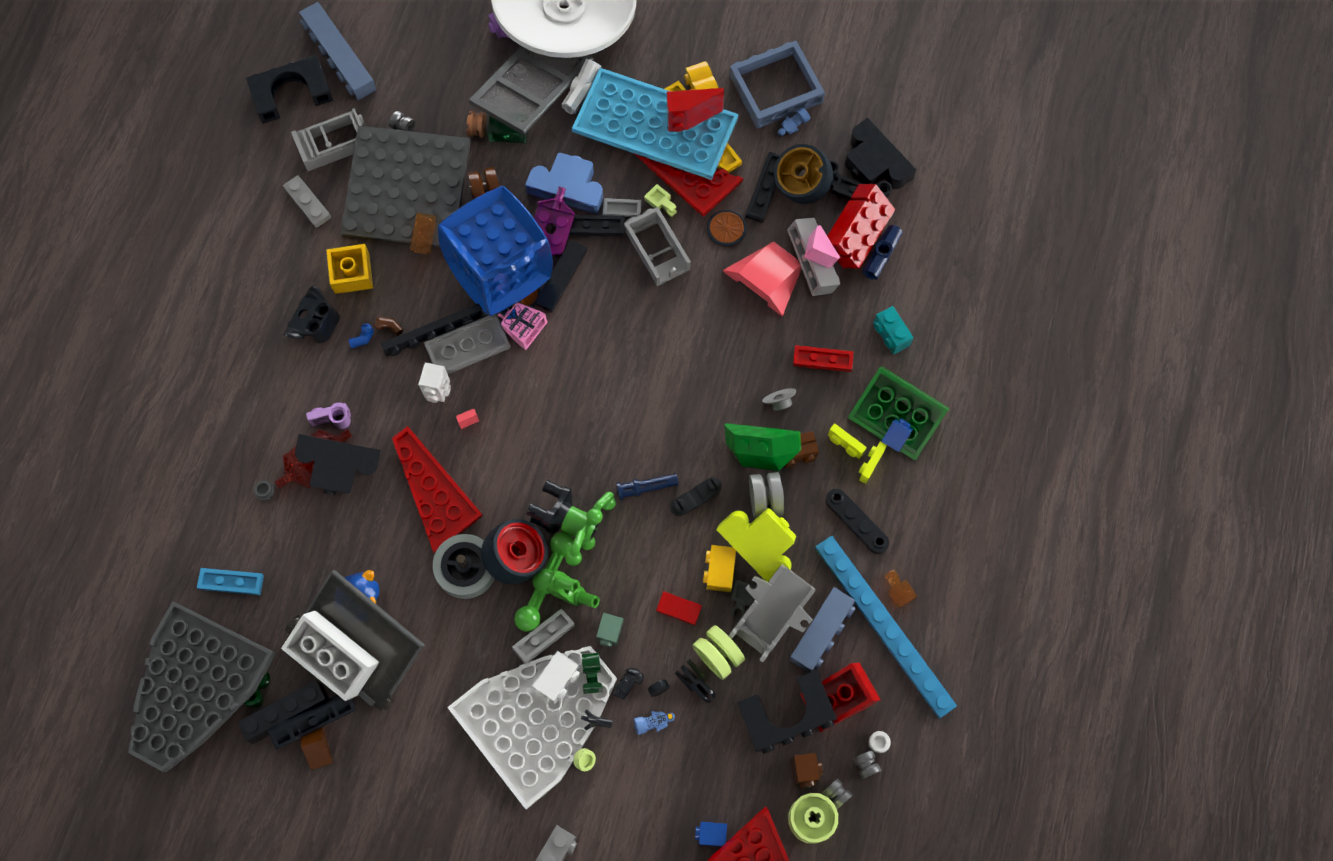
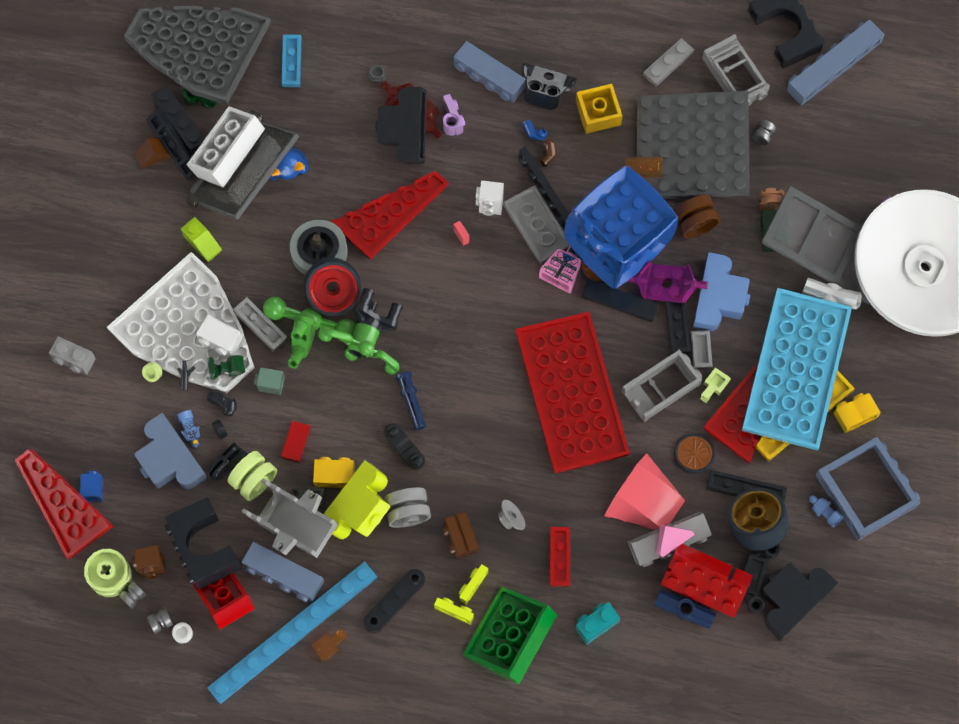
camera: 85 degrees right, 0 degrees up
(285, 373) = (489, 72): none -> sand blue brick
(433, 695) = (201, 239): none -> lime slope
(653, 330) = (572, 392): none -> red plate
(684, 746) = (167, 457): none -> sand blue brick
(692, 107) = (808, 394): red slope -> none
(762, 446) = (457, 499): green wedge -> none
(897, 434) = (482, 630): blue brick -> none

